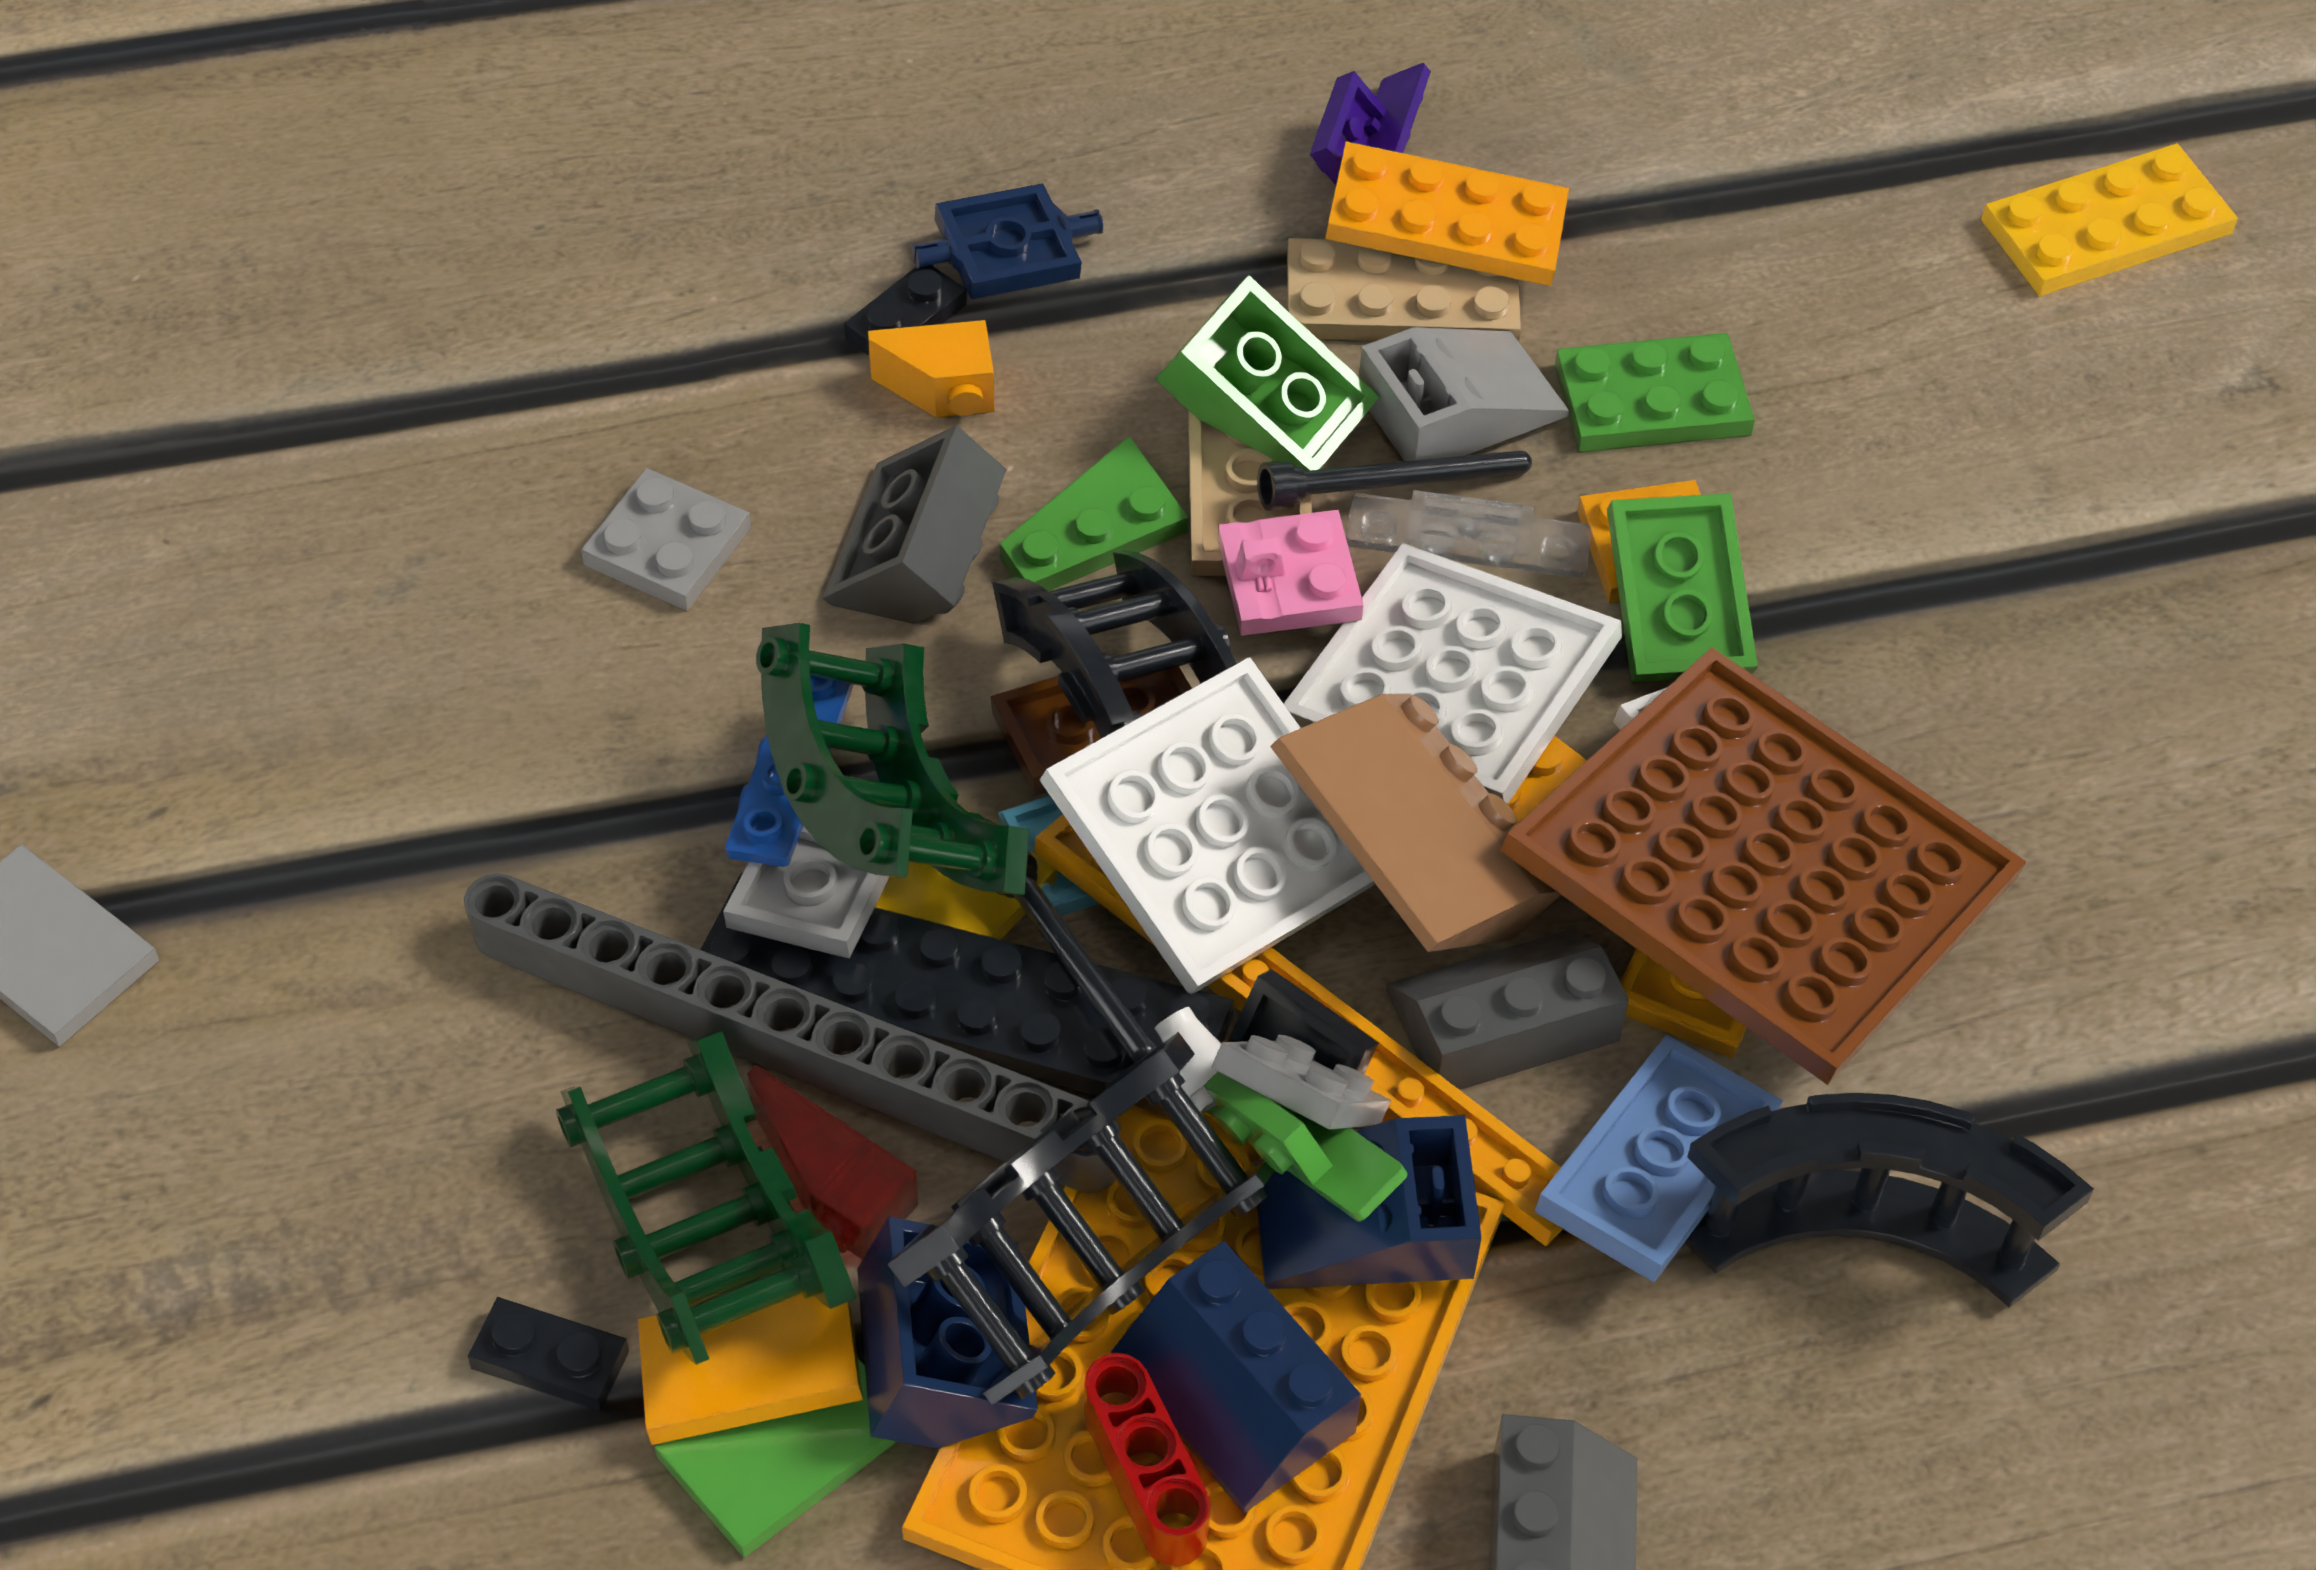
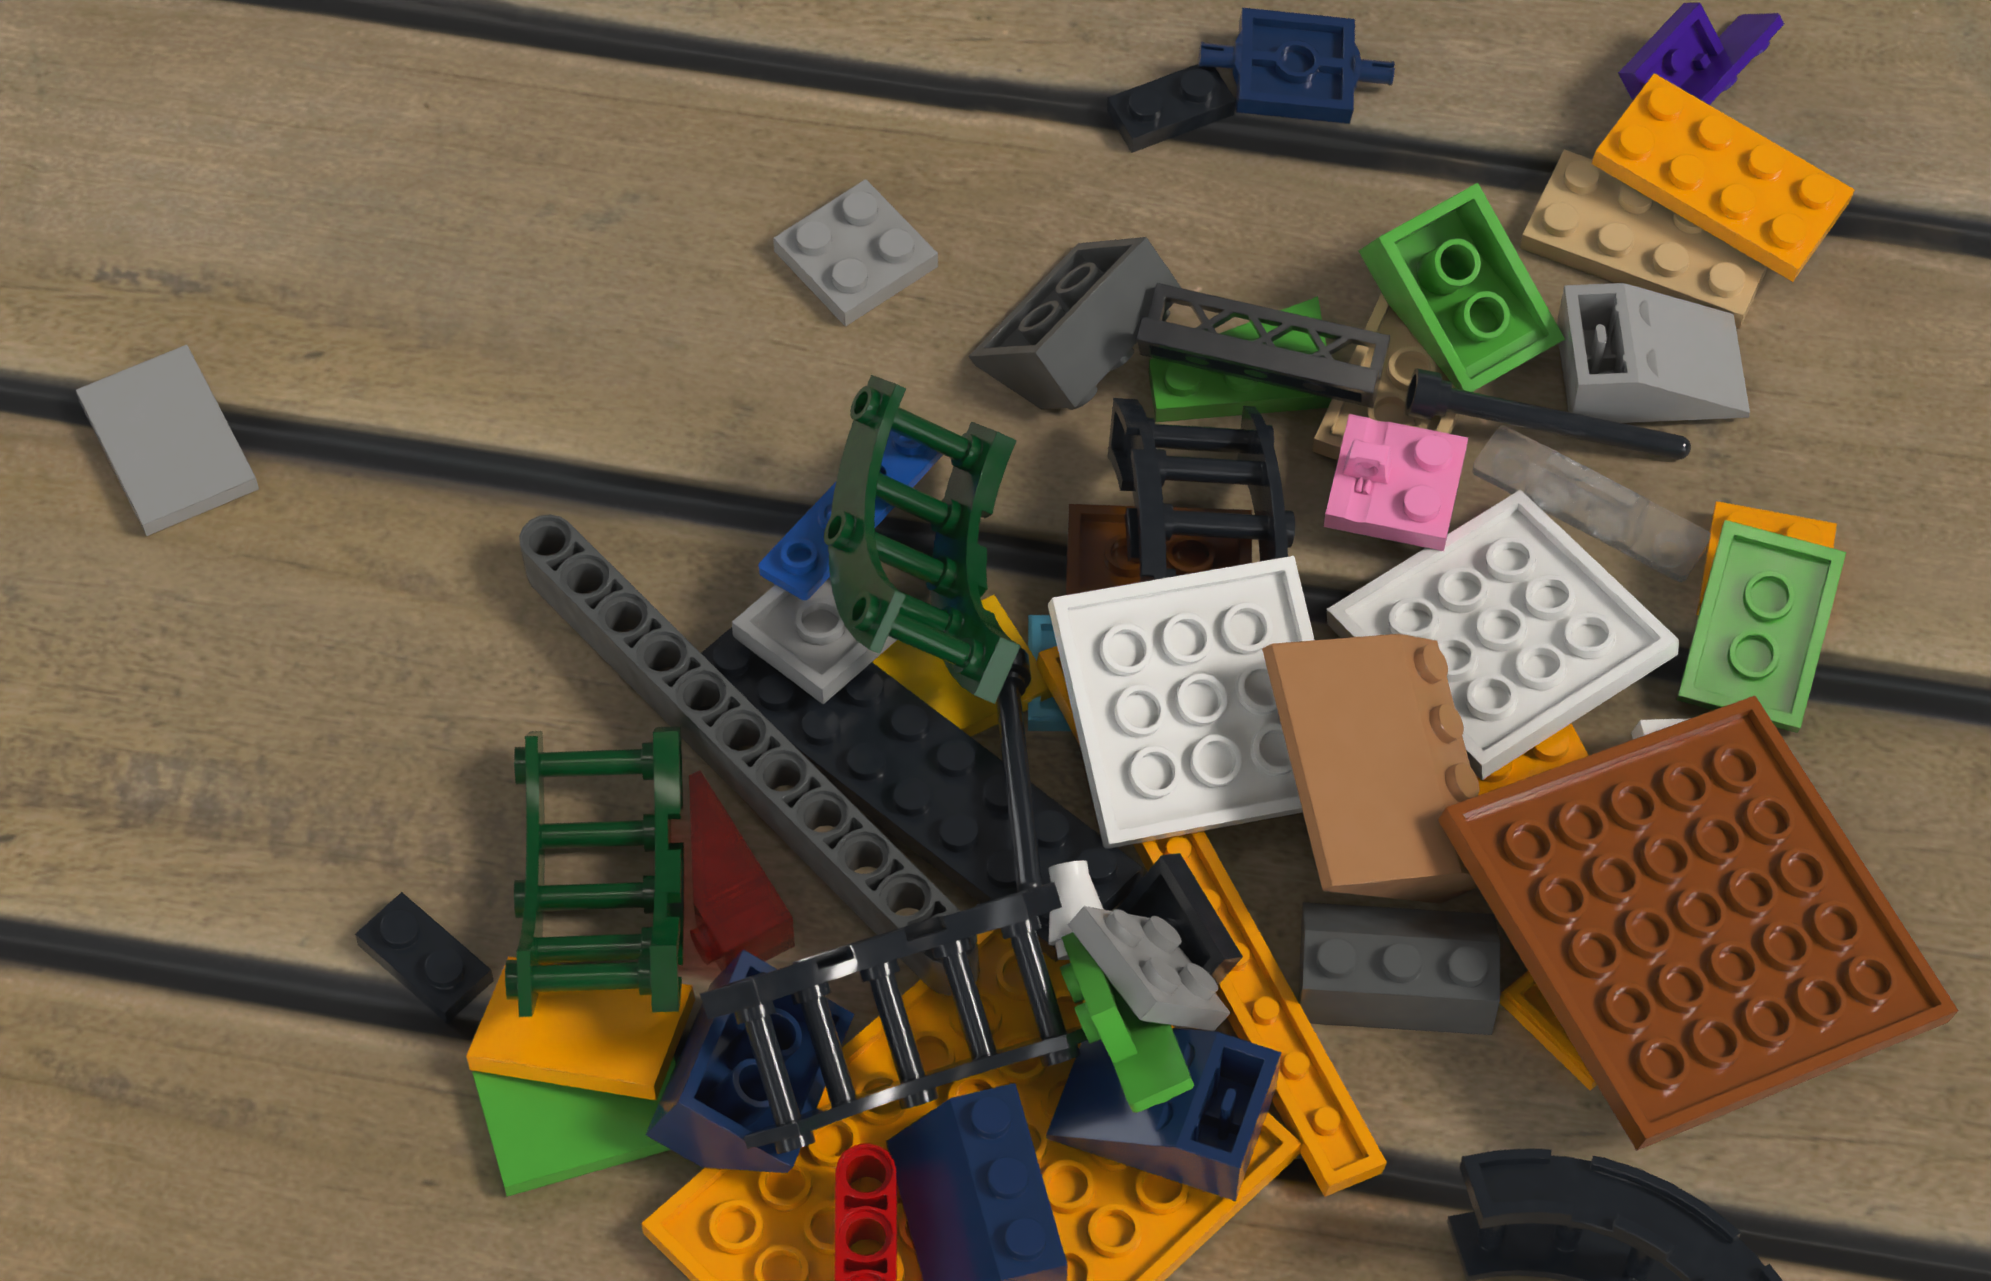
camera: 25 degrees right, 5 degrees up
(936, 366) = (1172, 169): light orange slope -> none
(1110, 502) = (1260, 358): none -> black fence
(1631, 1176) = (1406, 1171): medium blue plate -> none
(1654, 392) = (1845, 421): bright green plate -> none

